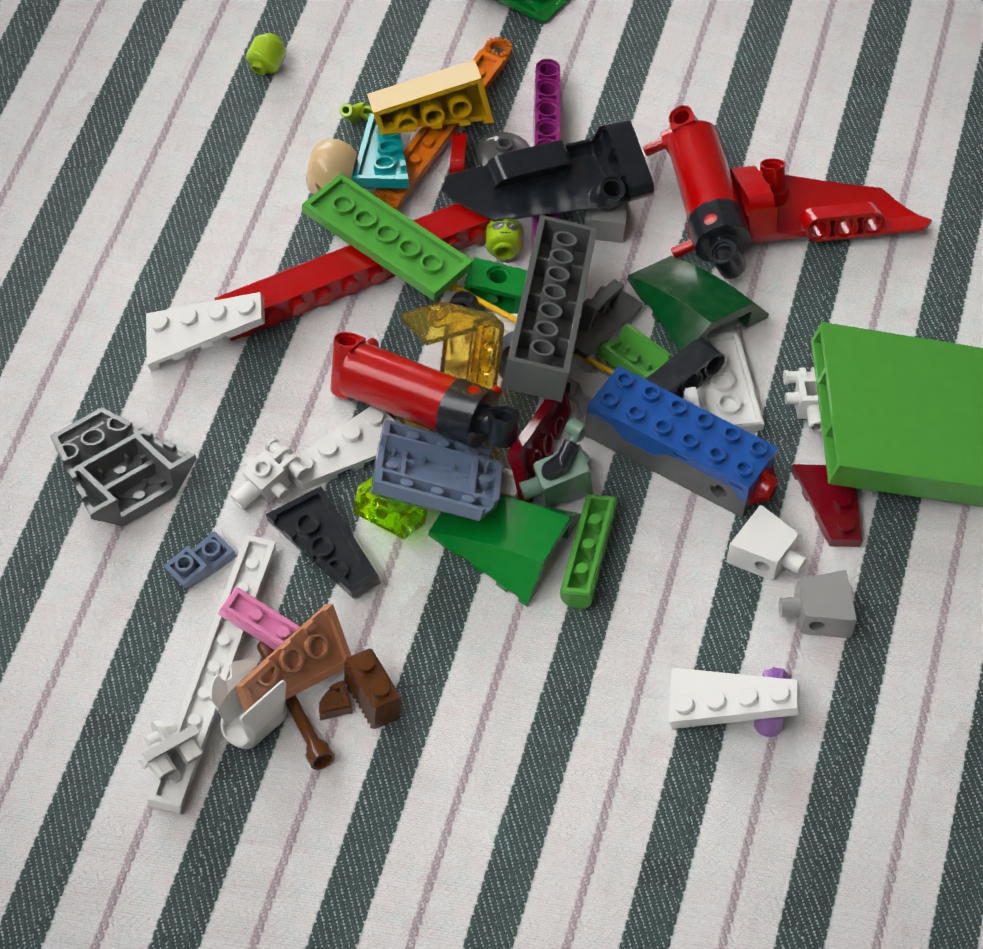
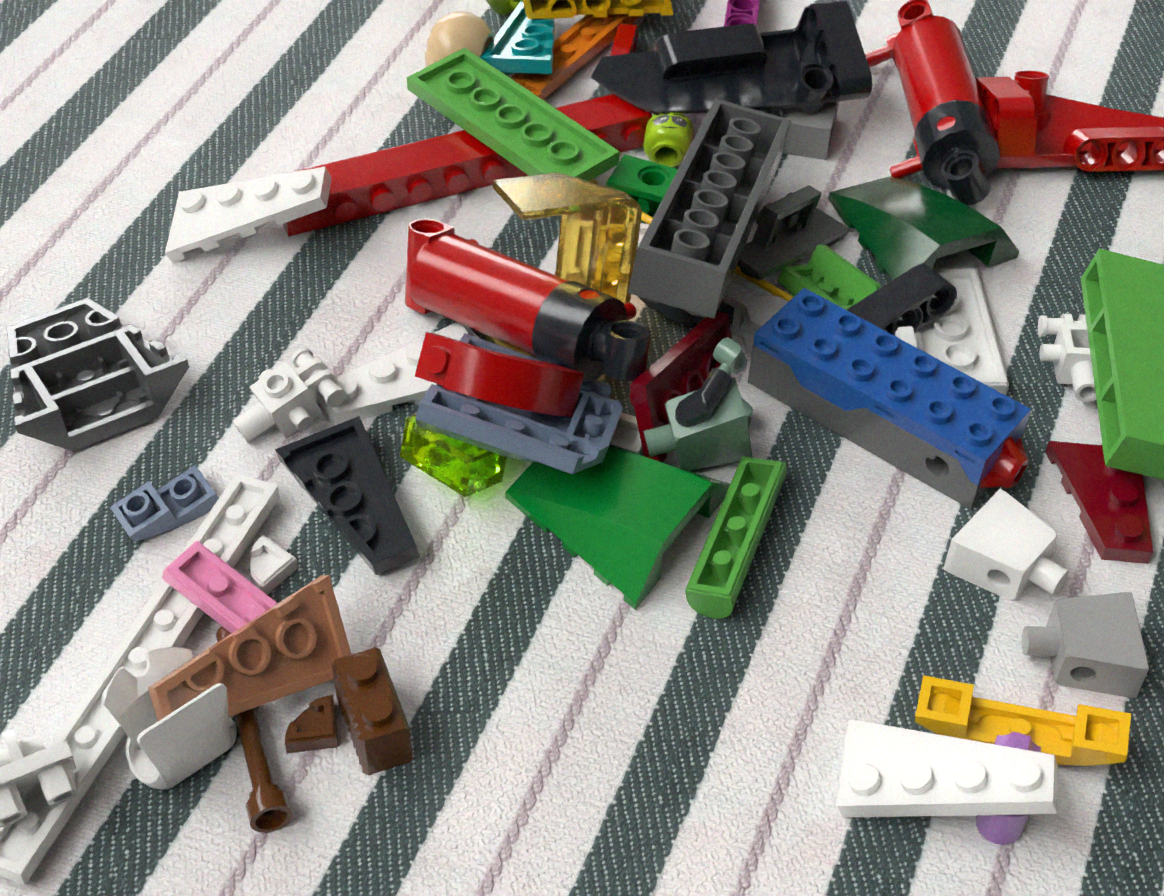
camera: 10 degrees right, 5 degrees down
(280, 596) = (270, 564): none -> white tile
(418, 456) = (499, 376): none -> red arch
(819, 667) = (1086, 739): none -> yellow slope

